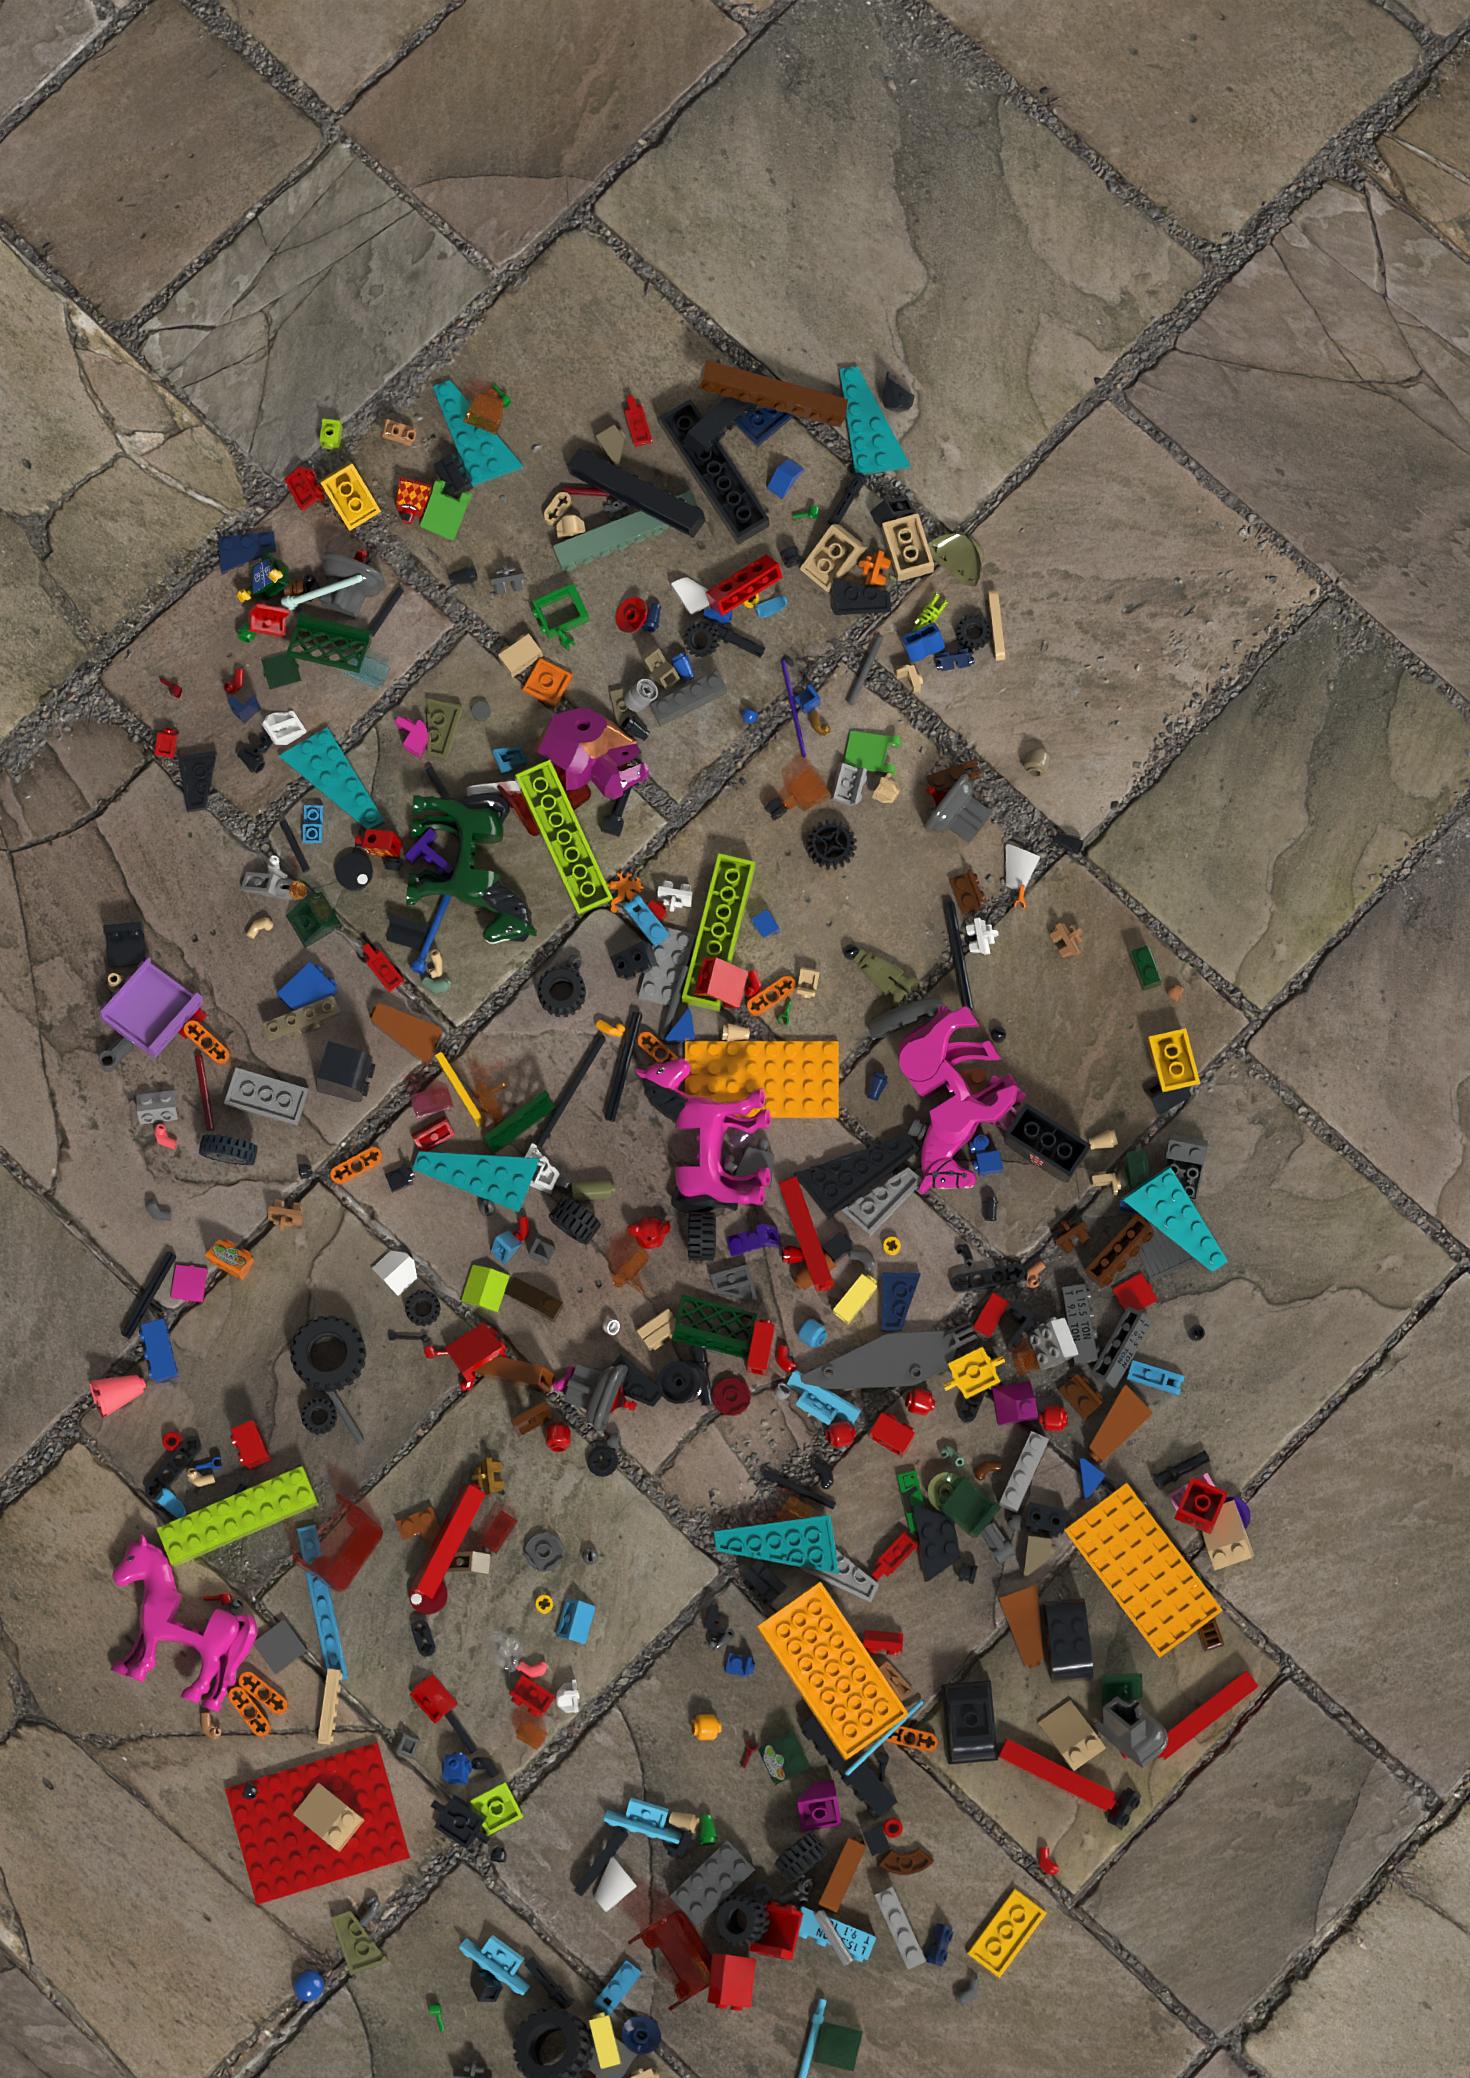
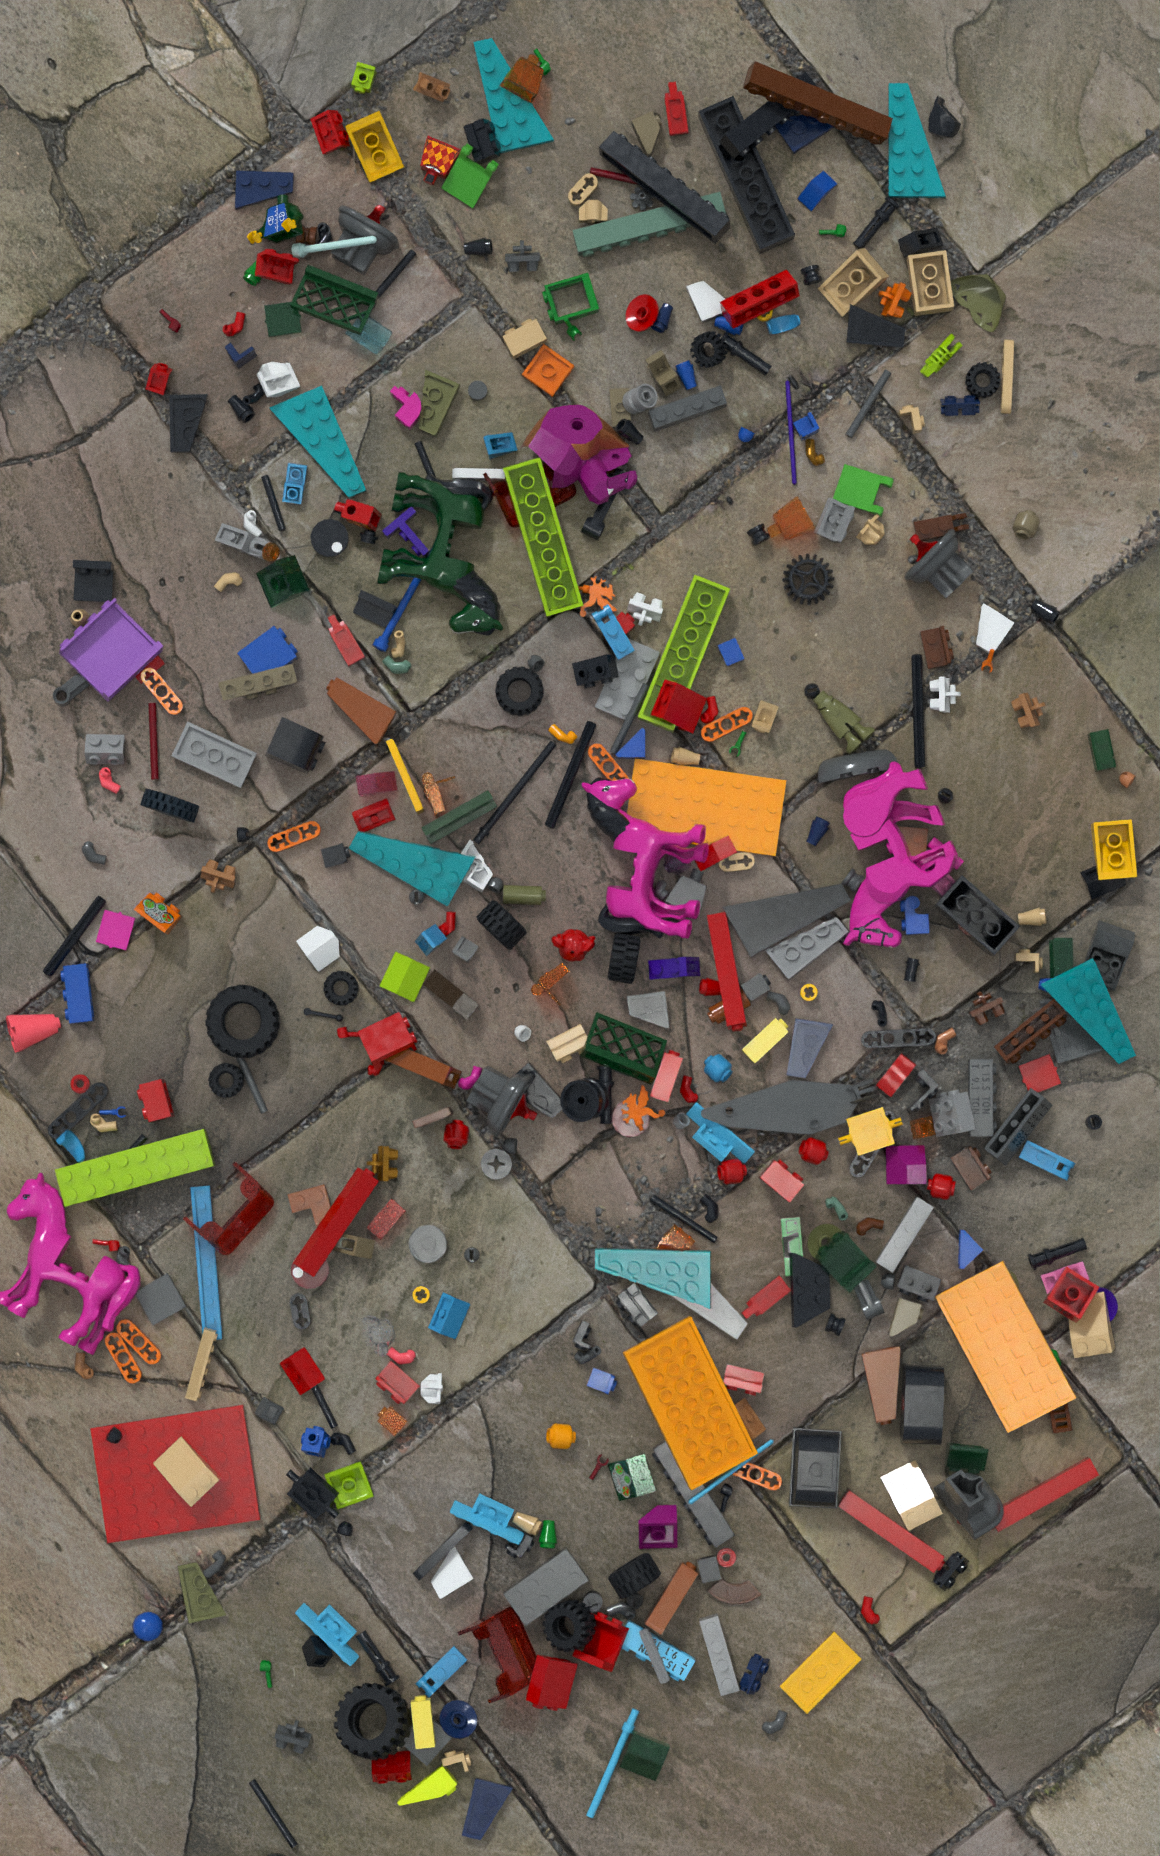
camera: 10 degrees right, 10 degrees up
(737, 1387) = (637, 1111): none -> orange piece
(780, 1119) = (717, 852): none -> red slope
(799, 1124) = (738, 867): none -> tan beam
(923, 642) = (930, 384): blue brick -> none
(1121, 1422) = (1006, 1199): dark orange slope -> none

